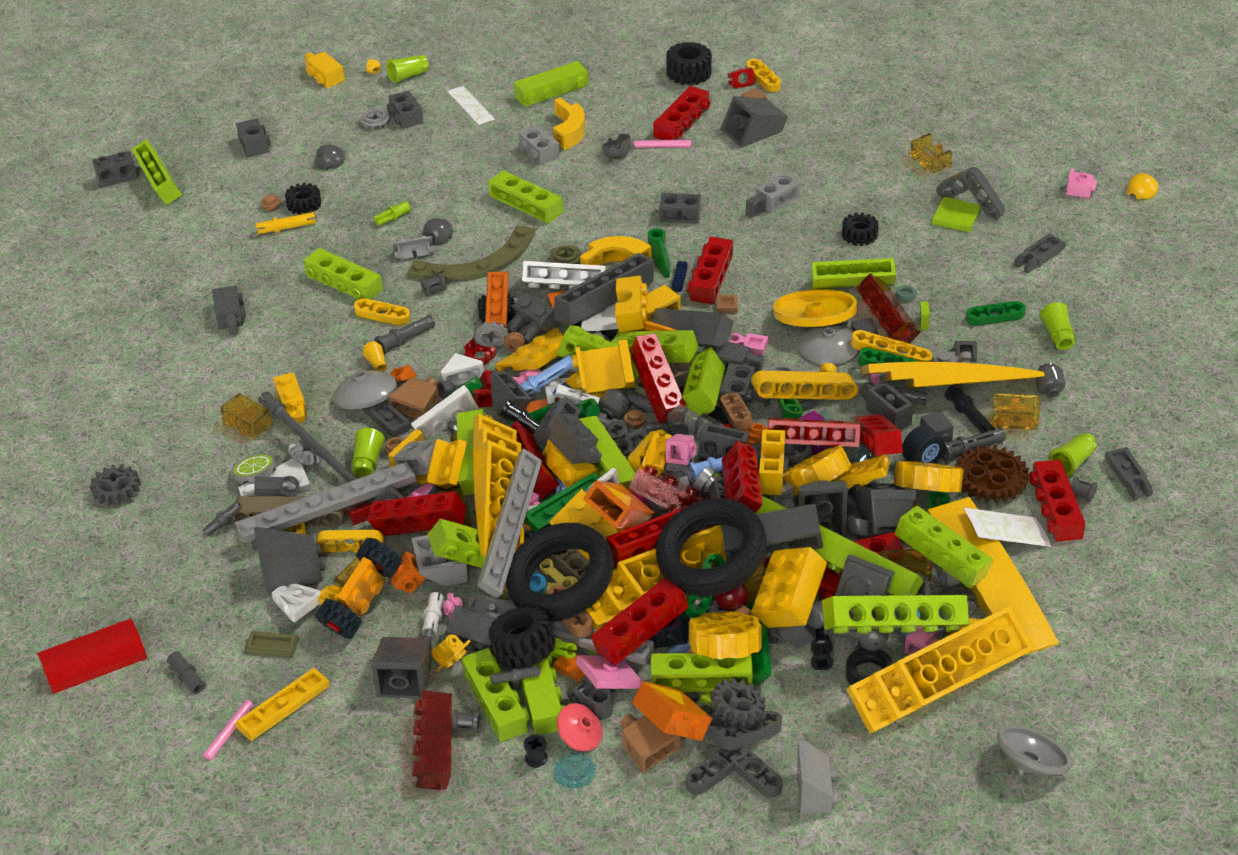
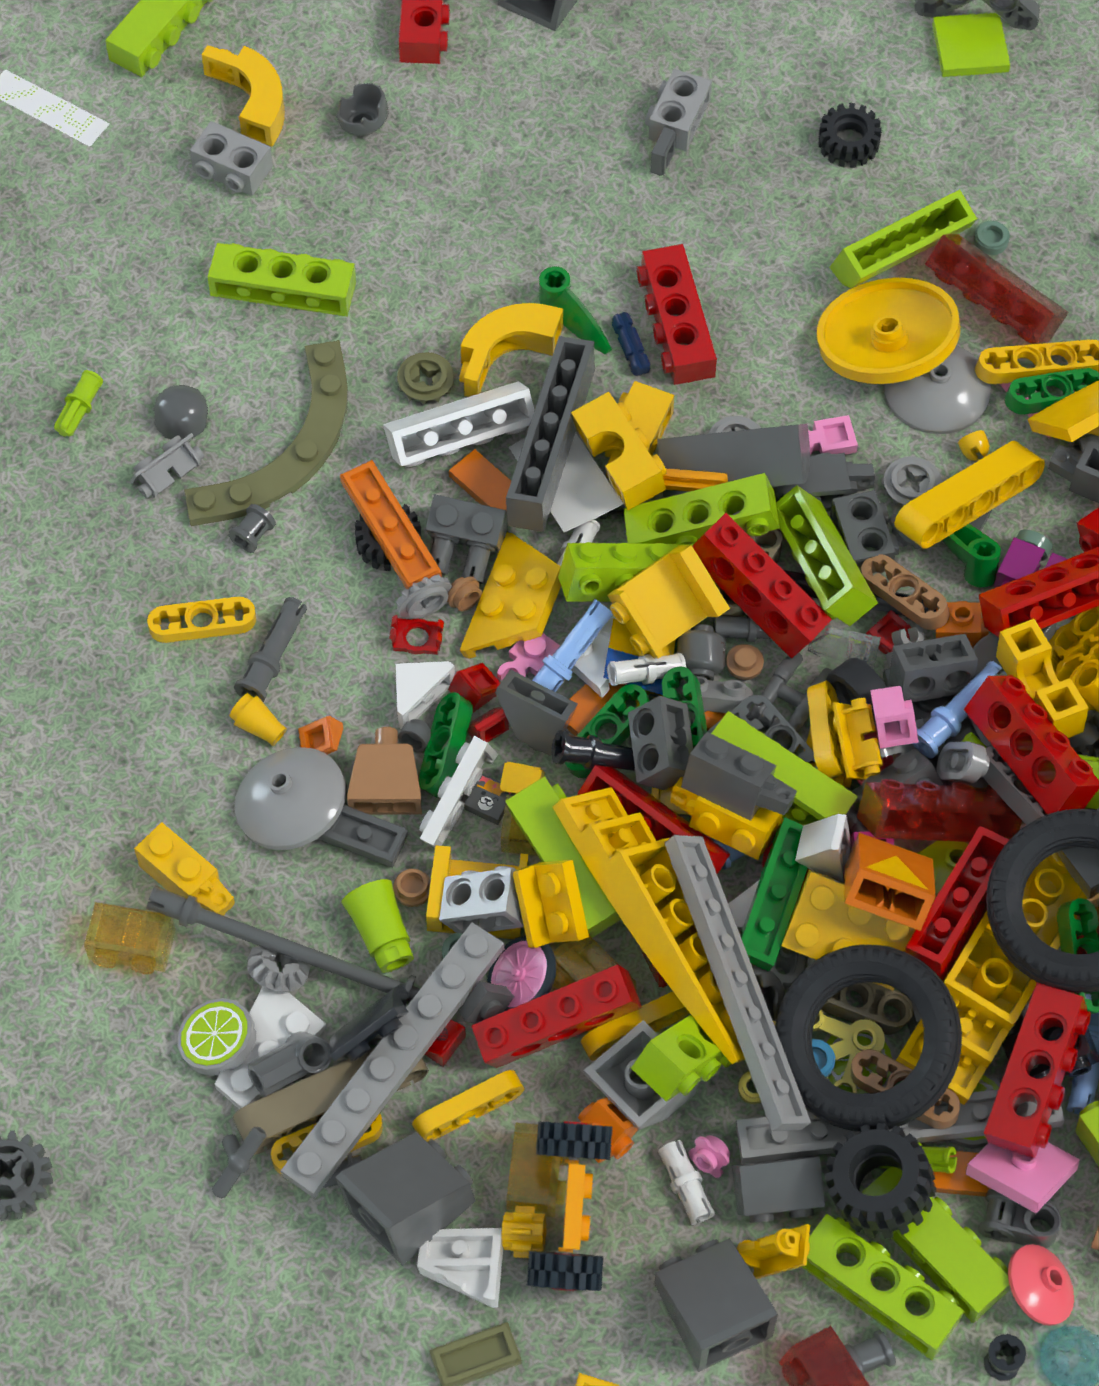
camera: 30 degrees left, 20 degrees up
(323, 481) = (379, 1018): none -> black slope
(342, 274) = (72, 561): lime brick -> none
(515, 676) = (904, 1247): dark grey piece -> none
(662, 143) = (427, 72): bright pink bar -> none
(680, 208) = (554, 203): dark grey brick -> none
(727, 304) = (739, 370): medium nougat tile -> none
(865, 325) = (976, 333): dark grey tile -> none
(924, 315) = (1050, 274): lime tile -> none

